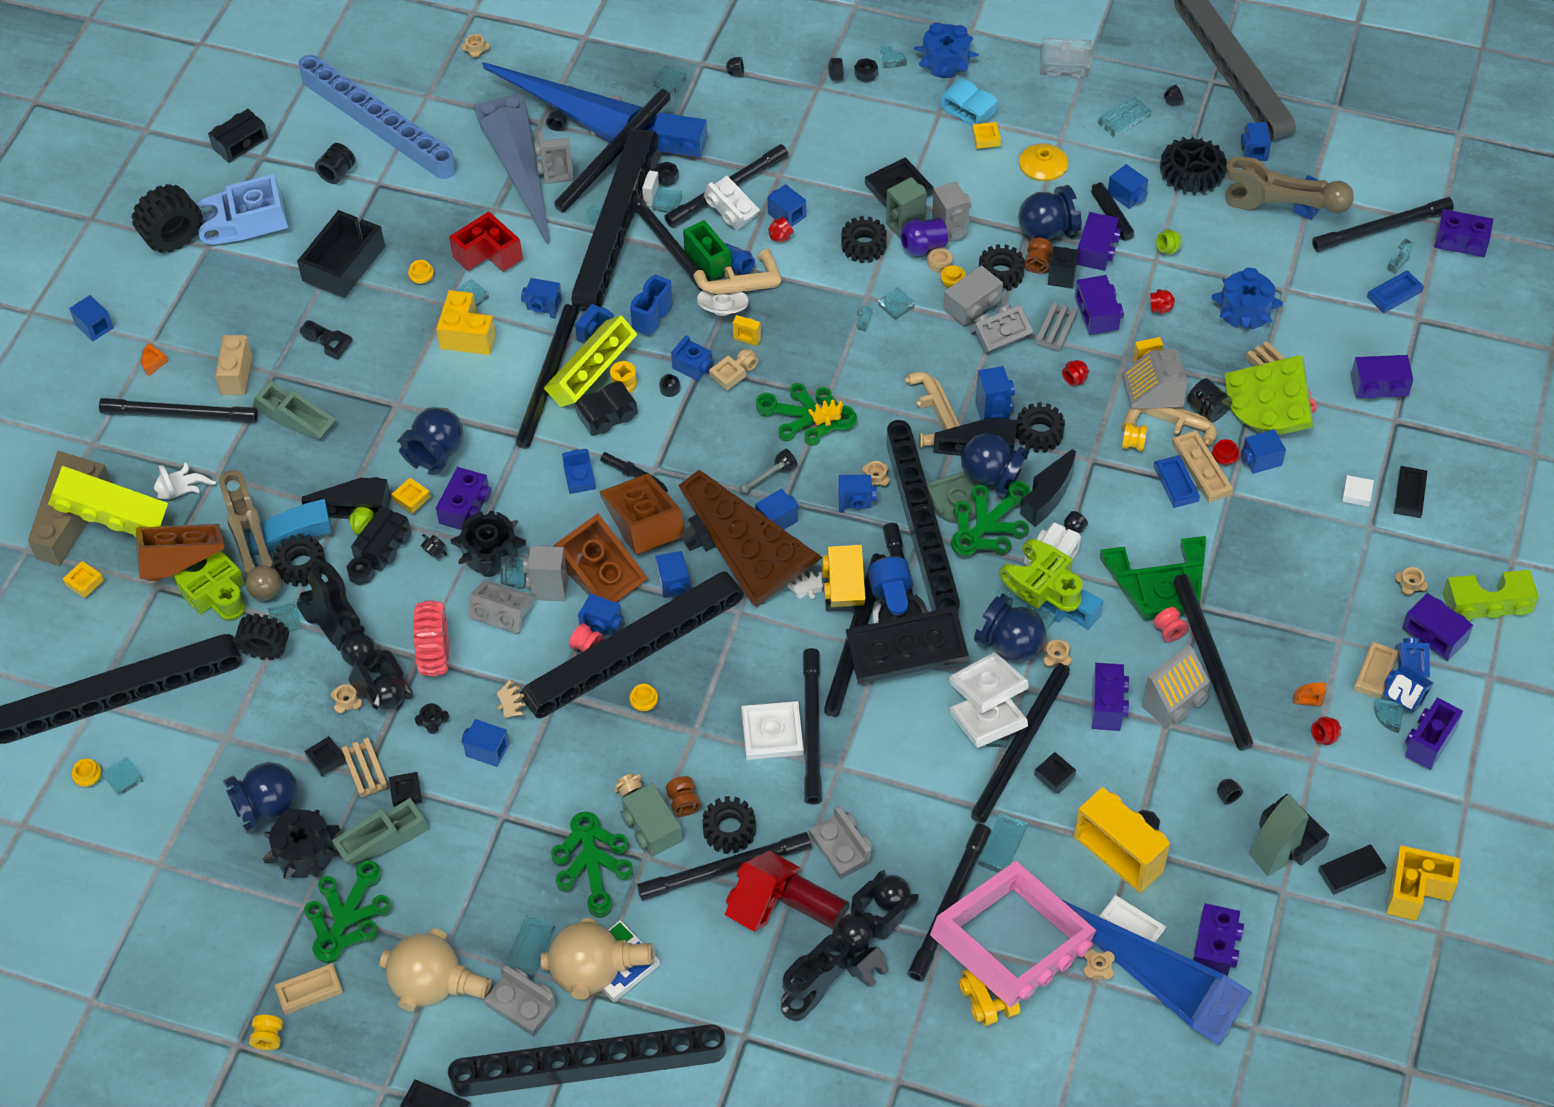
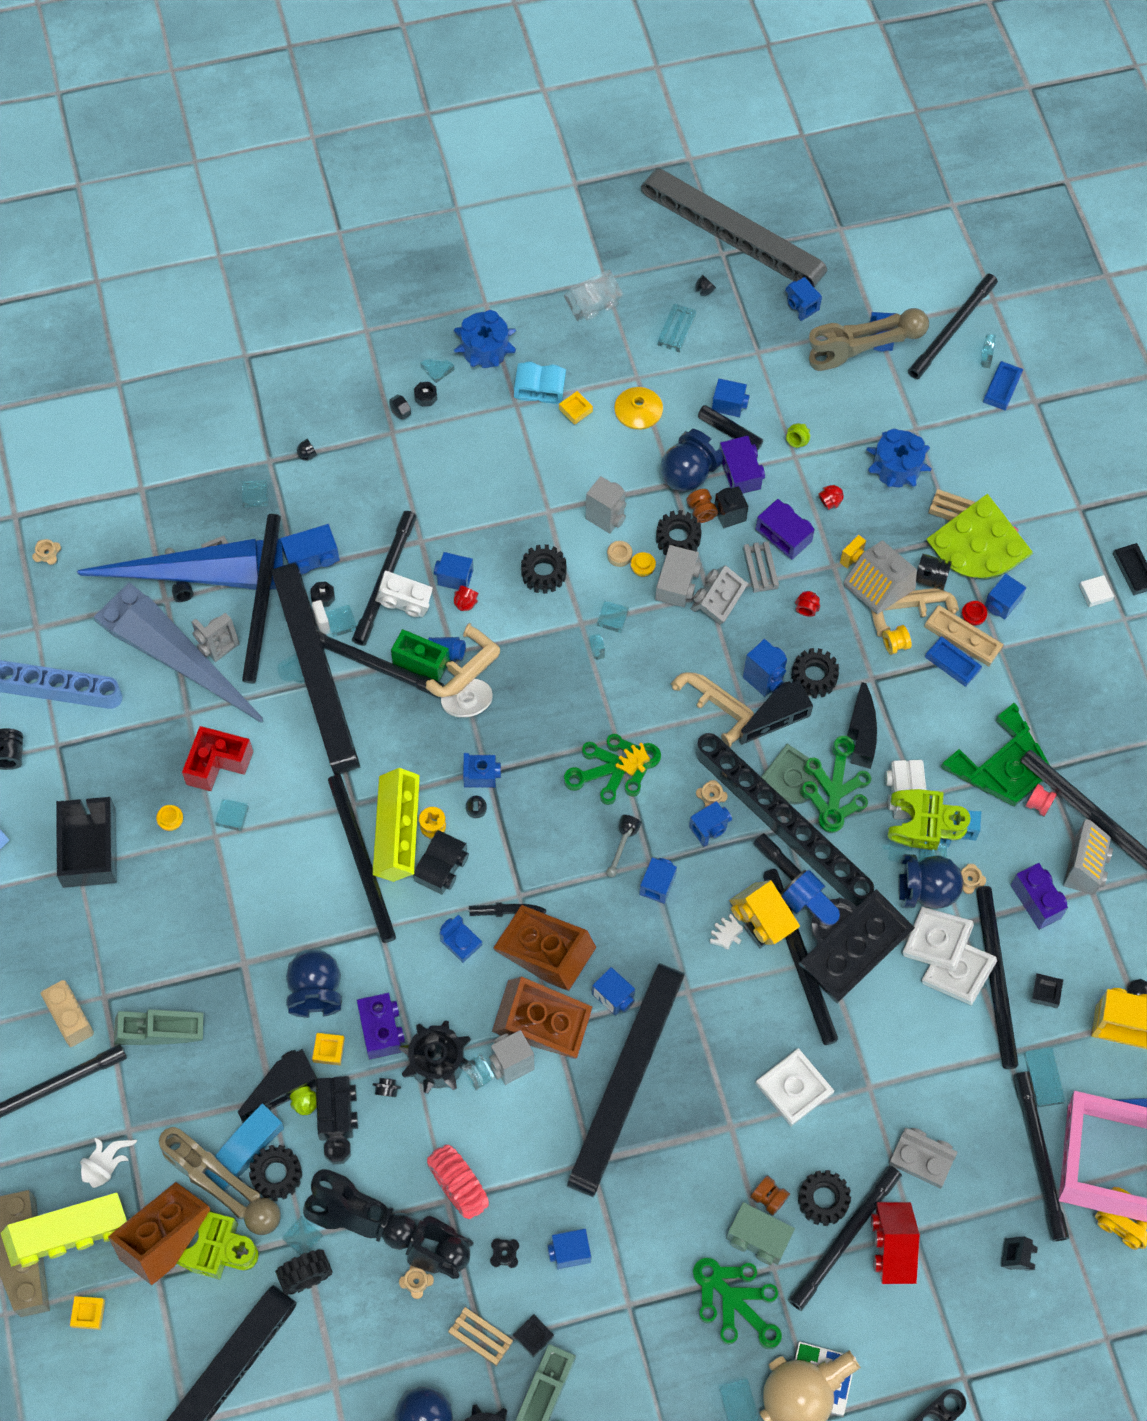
camera: 35 degrees left, 10 degrees up
(312, 331) = (113, 935): black piece -> none
(325, 756) = (440, 1348): black plate -> none
(462, 327) = (257, 856): yellow brick -> none
(499, 605) = (486, 1109): light grey bracket -> none
(510, 700) = (562, 1196): tan piece -> none
(542, 296) = (302, 782): blue brick -> none
(584, 638) = (586, 1099): coral wheel -> none
(591, 321) = (366, 782): blue bracket -> none
(601, 615) = (582, 1068): blue brick -> none
(628, 784) = (718, 1213): tan plate -> none
(643, 697) = (669, 1122): yellow plate -> none
(651, 304) = (409, 737): blue brick -> none
(697, 535) = (607, 940): black tile -> none
(730, 372) = (521, 765): tan plate -> none
(747, 330) = (507, 715): yellow plate -> none
(751, 544) = (664, 925): reddish brown wing -> none
(812, 779) = (859, 1112): black piece -> none
(814, 901) = (942, 1222): dark red brick -> none
(853, 934) = (995, 1237): black piece -> none
(892, 175) = (536, 497): black plate -> none
(905, 203) = (564, 520): sand green brick -> none
(923, 236) = (594, 540): dark purple piece -> none
(990, 461) = (807, 732): dark blue tile -> none
(1075, 521) = (903, 748): black hinge -> none
(1193, 165) = (782, 344): black gear -> none
(1382, 376) = (1051, 475): dark purple brick -> none
(1463, 233) = (1022, 302): dark purple brick -> none

